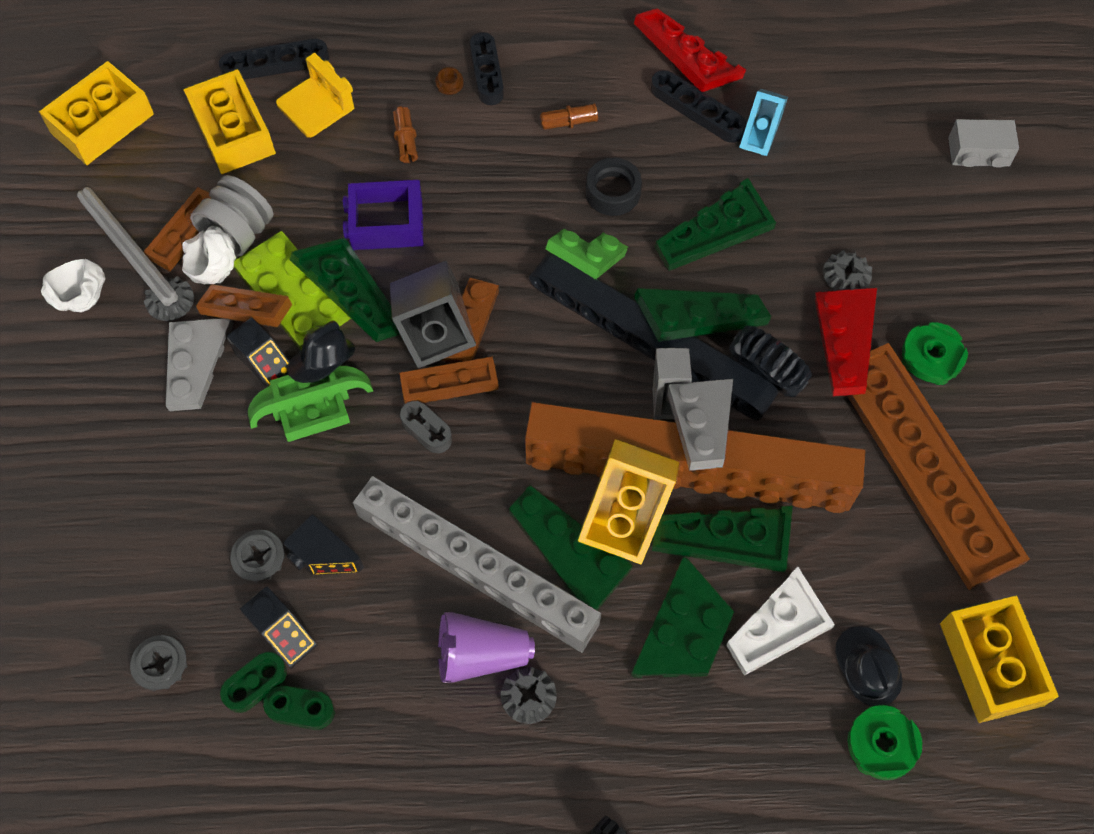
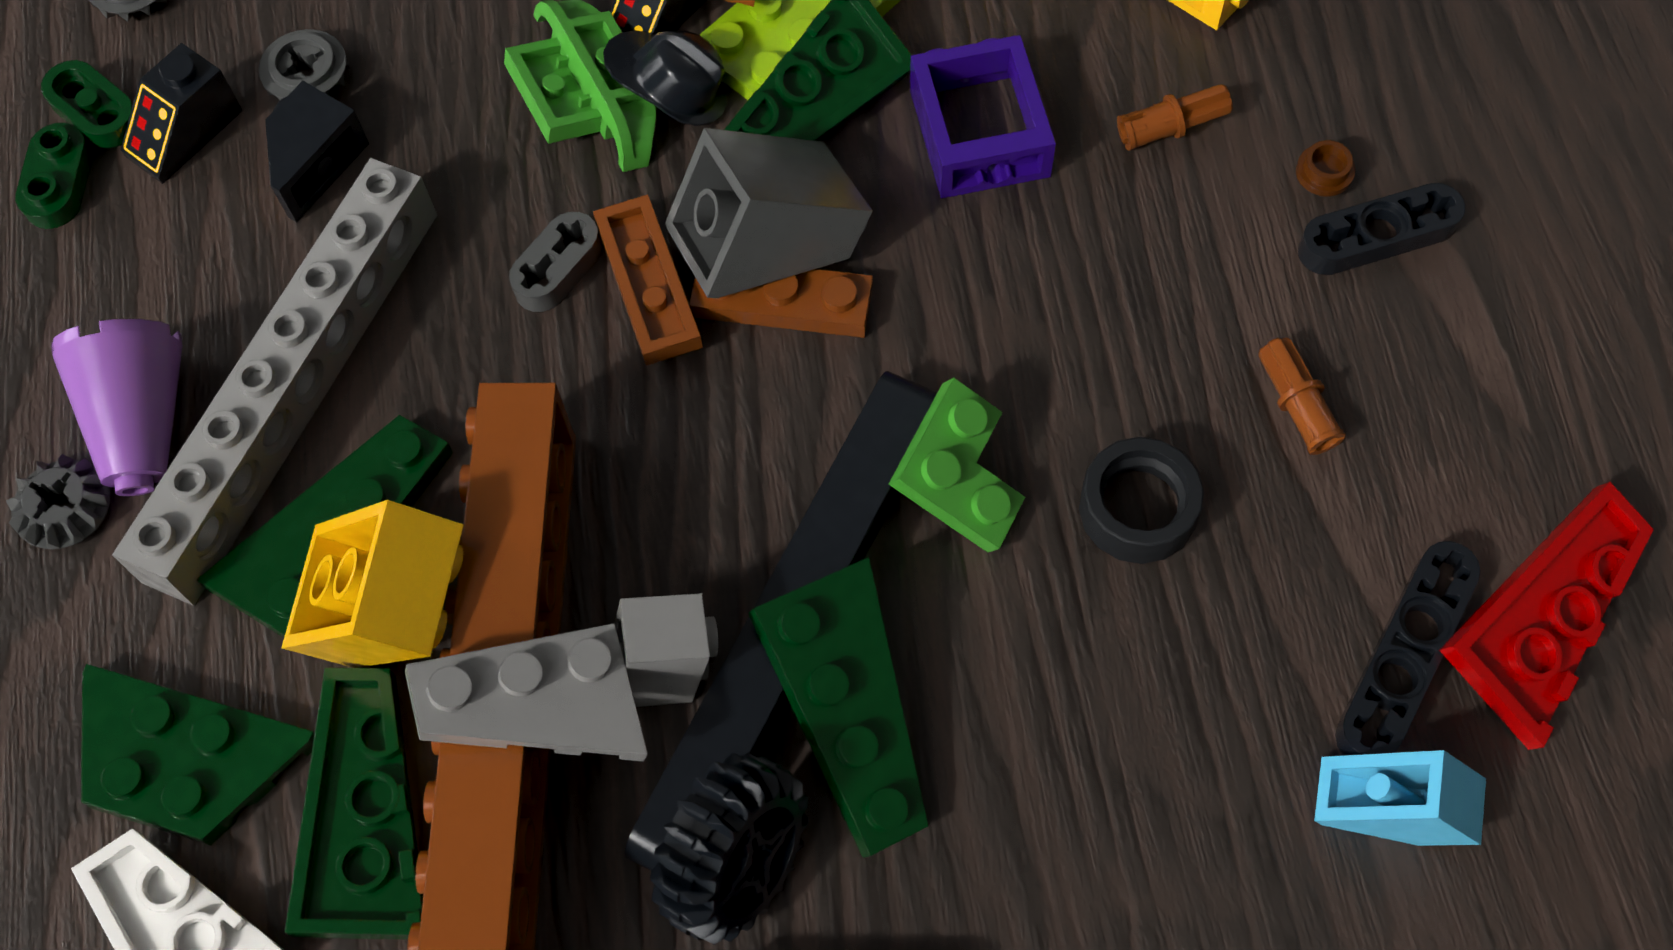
camera: 85 degrees right, 0 degrees up
(727, 222) = (1099, 740): dark green wing -> none

